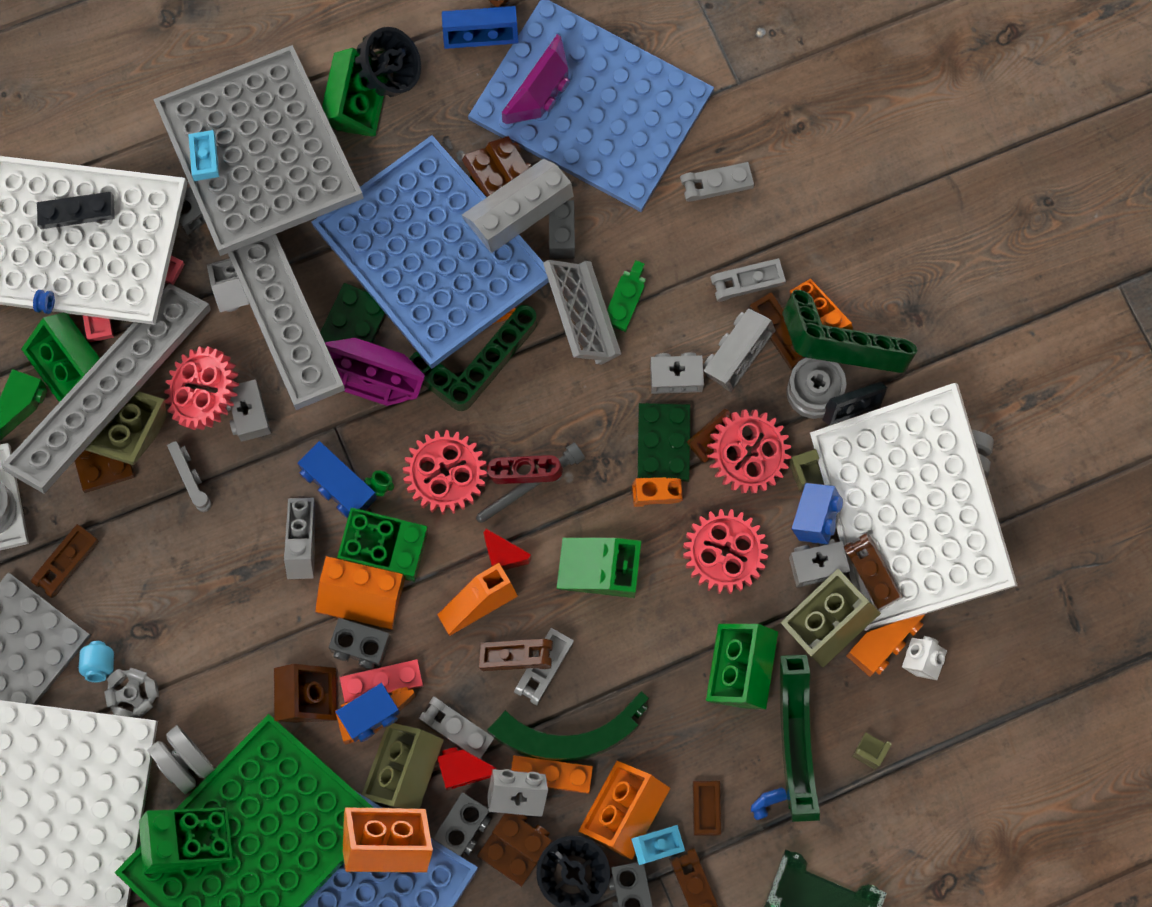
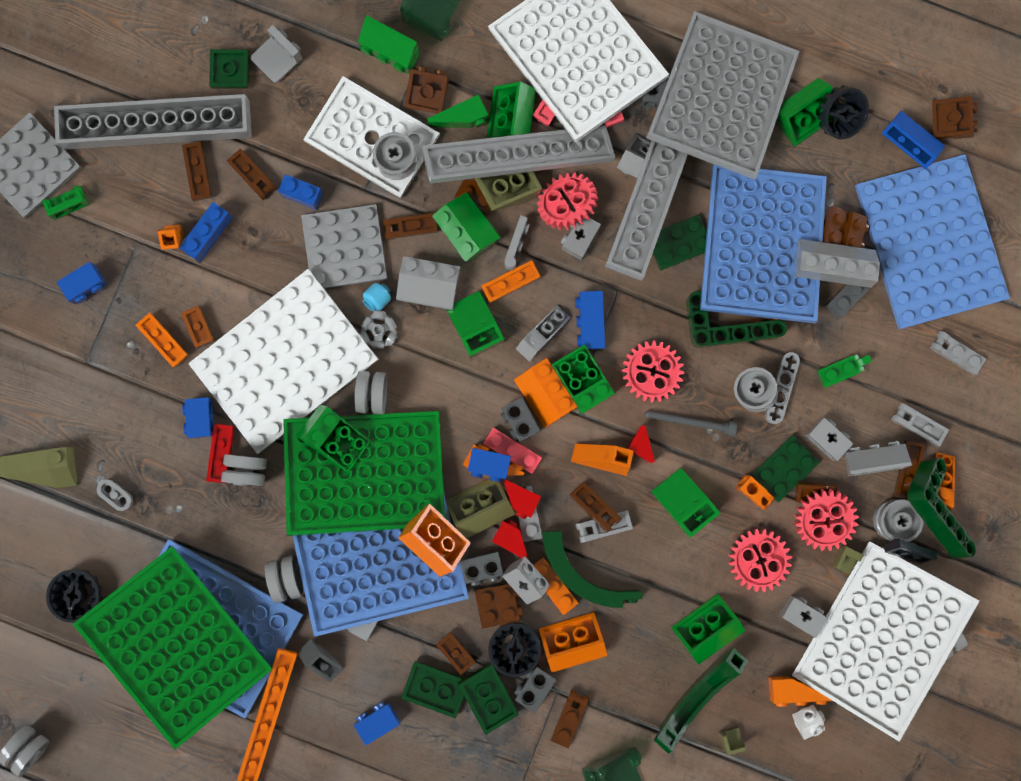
camera: 45 degrees right, 10 degrees up
(43, 301) = (528, 72): blue bush -> none
(75, 210) = (593, 36): black plate -> none
(123, 507) = (466, 227): none -> green slope
(135, 598) = (427, 283): none -> light grey slope
(203, 155) = (691, 71): medium azure plate -> none
(219, 519) = (510, 281): none -> orange plate
(224, 594) = (475, 324): none -> green slope
(304, 693) = (467, 419): reddish brown slope -> none
(375, 371) = (669, 282): magenta wedge -> none
(380, 482) = (612, 344): green plate -> none
(435, 717) = (521, 499): none -> red slope
(532, 477) = (696, 419): dark red beam -> none
(540, 87) = (915, 206): magenta wedge -> none
(550, 382) = (752, 379): none -> light grey wheel
(582, 371) = (785, 389): none -> light grey beam
(592, 317) = (815, 363): light grey fence -> none
(658, 844) = (572, 679): medium azure plate -> none
(706, 808) = (616, 683): reddish brown tile -> none
(766, 799) = (643, 710): blue arm -> none
(817, 513) = (829, 590): brick -> none
(830, 618) = (780, 651): olive slope -> none
(873, 572) = (828, 651): reddish brown plate -> none

